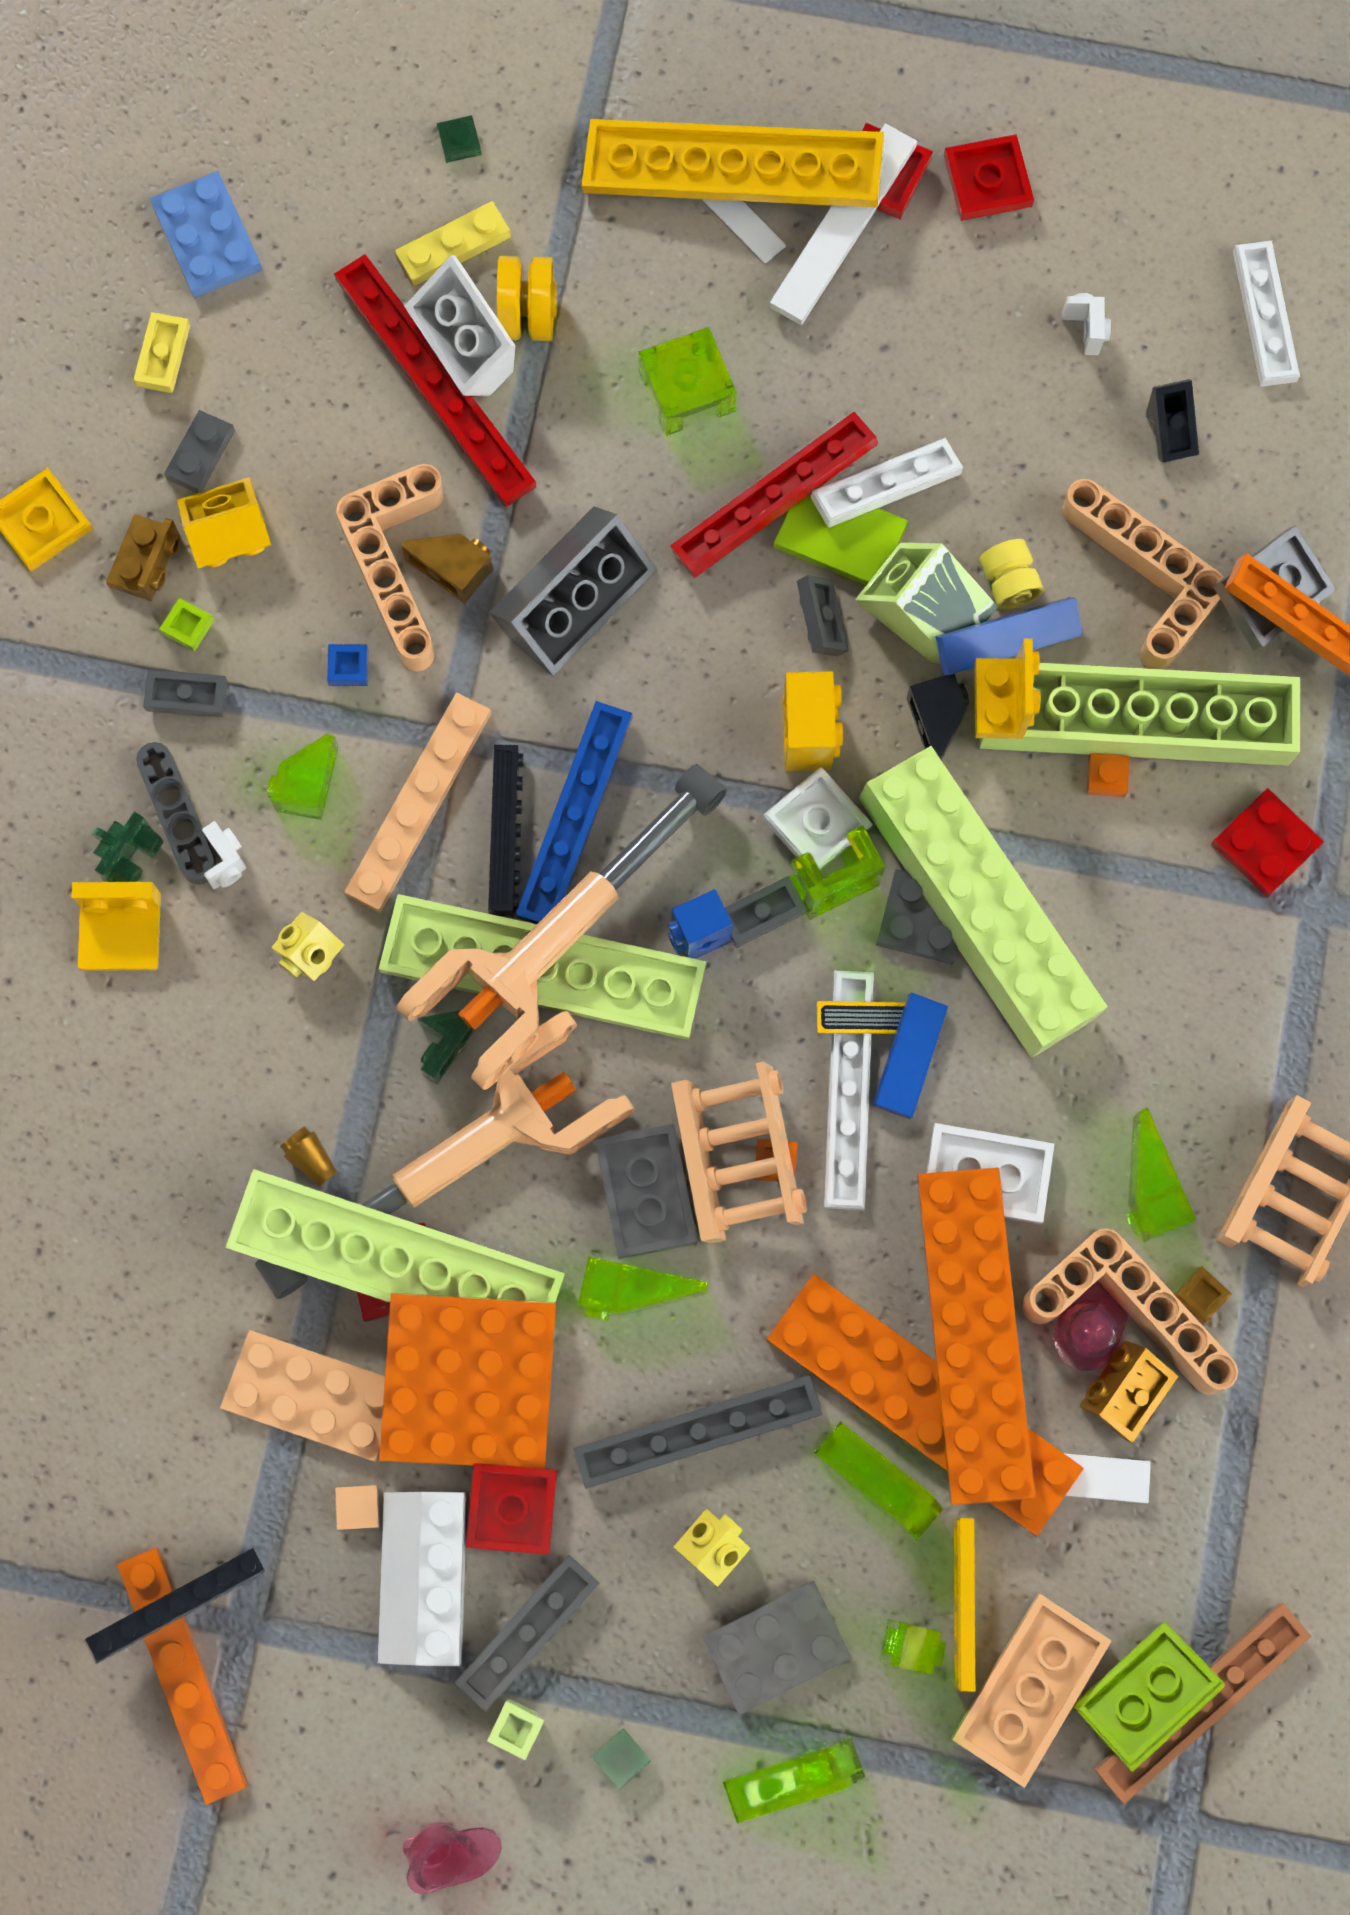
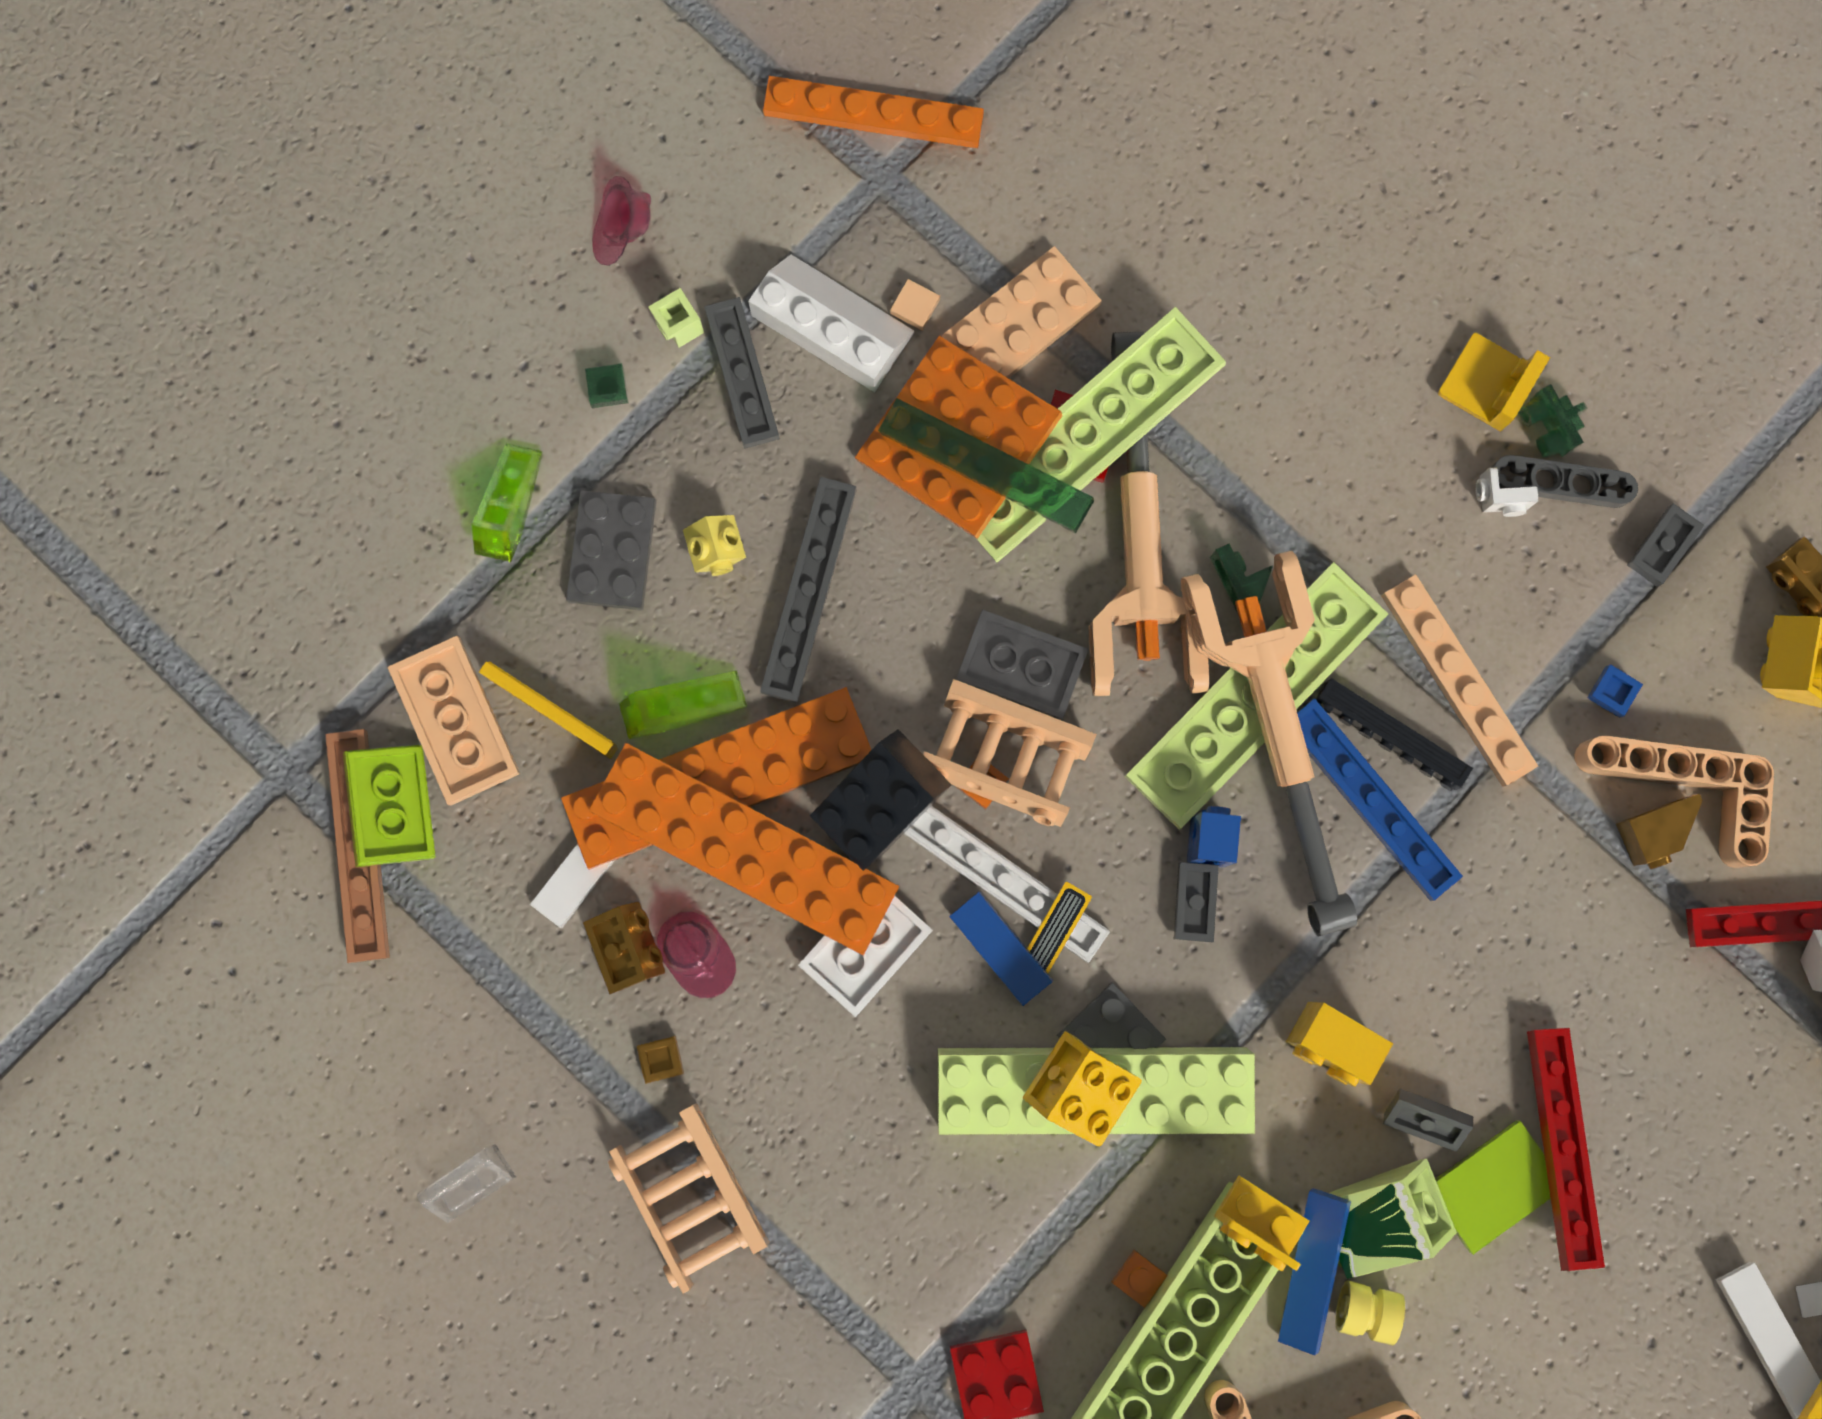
camera: 120 degrees right, 5 degrees up
(174, 1606) = (925, 127): black piece -> none
(186, 624) = (1727, 580): lime plate -> none
(304, 779) = (1532, 598): clear neon green slope -> none
(306, 947) = (1385, 515): light yellow brick -> none
(309, 1156) = (1211, 422): pearl gold cone -> none
(486, 1333) = (986, 465): none -> clear green tile
(511, 1508) = (840, 414): red plate -> none
(574, 589) = (1575, 920): dark grey slope -> none
(627, 1289) = (955, 598): clear neon green slope -> none
(687, 378) = (1720, 1139): clear neon green panel -> none
(816, 819) = (1247, 998): white plate -> none
(854, 1235) = (880, 799): none -> black brick
(861, 876) = (1179, 979): clear neon green panel -> none
(886, 482) = (1520, 1258): white tile -> none
(912, 1647) = (541, 644): clear neon green slope -> none
(938, 710) = (1281, 1165): black slope -> none
(995, 906) = (1081, 1090): none -> yellow bracket
(1137, 1305) = (687, 999): light nougat beam -> none
(1155, 1191) = (765, 1075): clear neon green slope -> none

